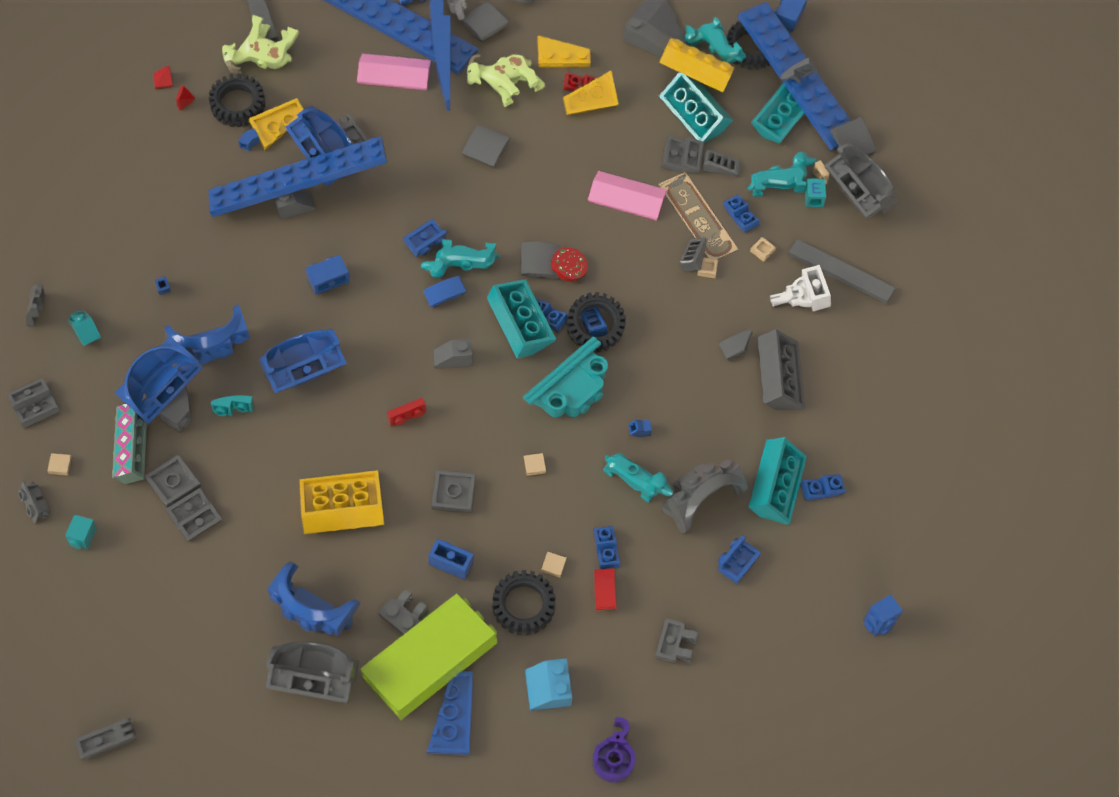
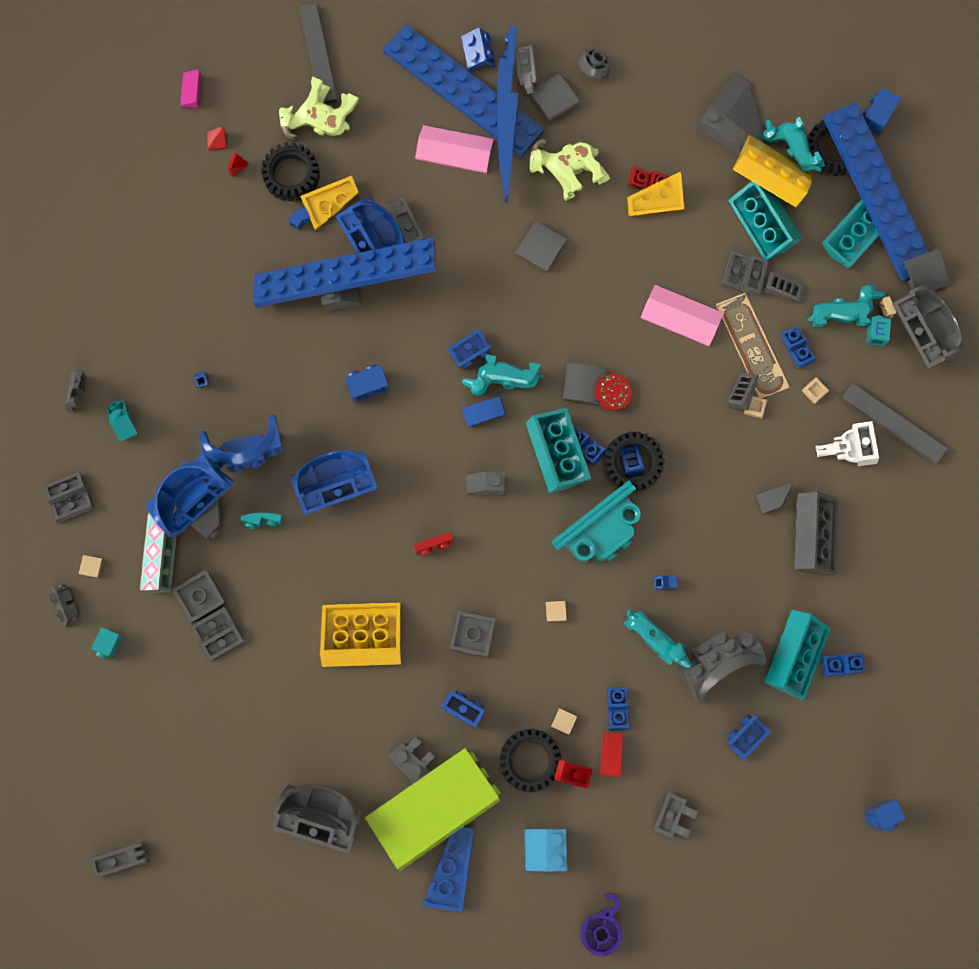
camera: 10 degrees right, 15 degrees up
(135, 38) = (191, 89): none -> dark pink slope
(307, 608) = (319, 748): blue piece -> none
(561, 54) = (630, 142): yellow wing -> none
(568, 608) = (573, 774): none -> red plate
(800, 70) = (881, 189): dark grey slope -> none

